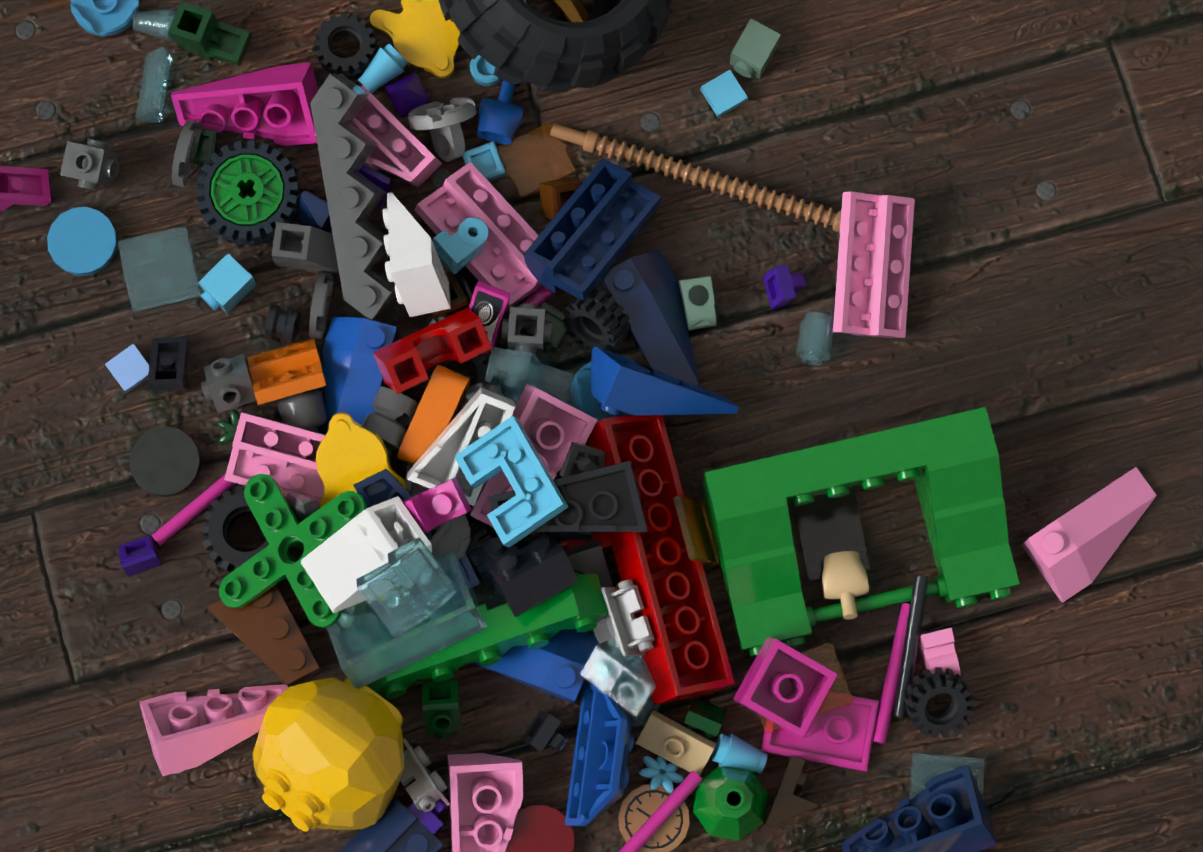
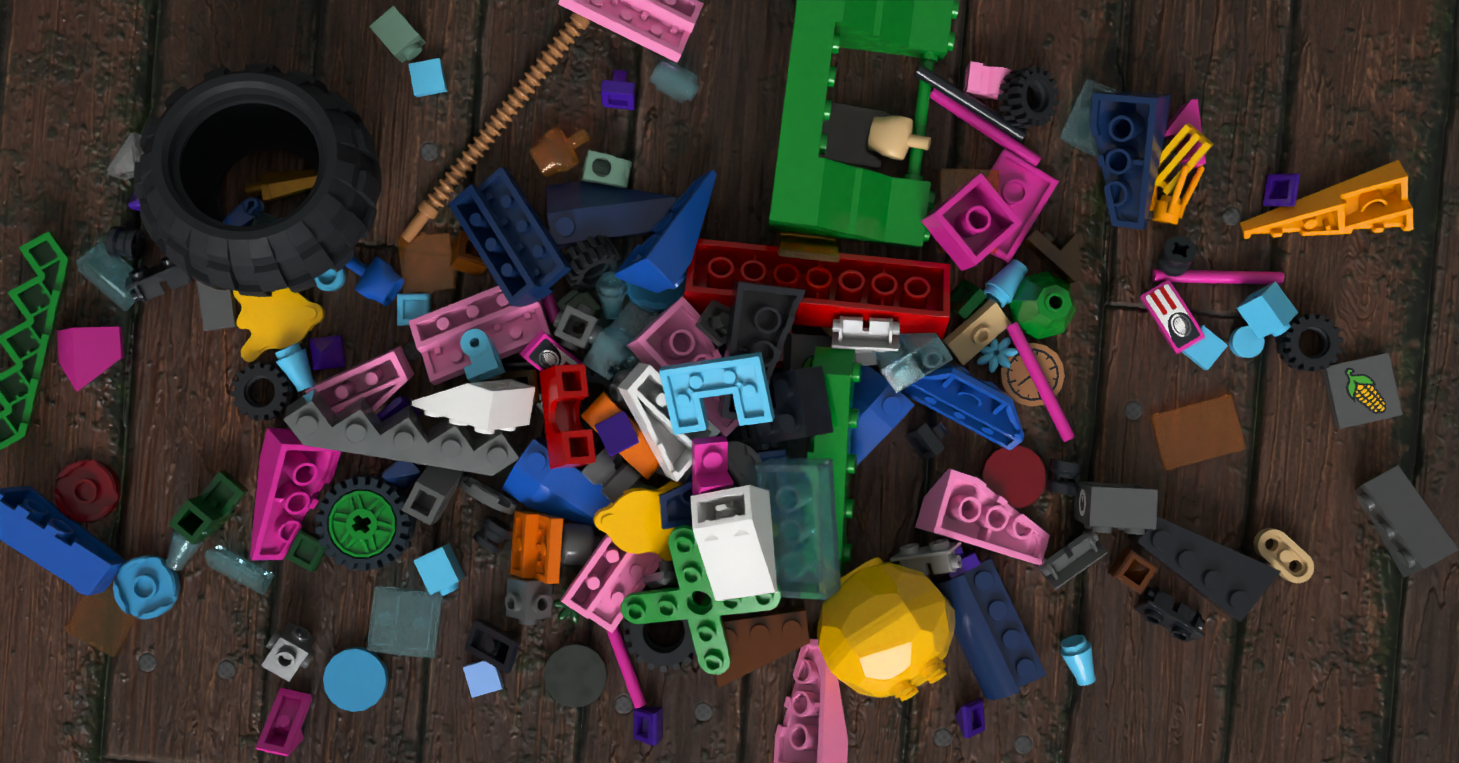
camera: 65 degrees left, 10 degrees up
(186, 151) = (308, 564): dark grey tile -> none
(406, 587) = (780, 520): clear light blue slope -> none
(433, 404) = (617, 433): none -> dark purple slope
(443, 715) = (883, 521): dark green brick -> none
(444, 124) = (366, 331): light grey tile -> none
(573, 352) = (611, 294): none -> clear light blue cone
(698, 246) = (556, 151): none -> clear orange piece

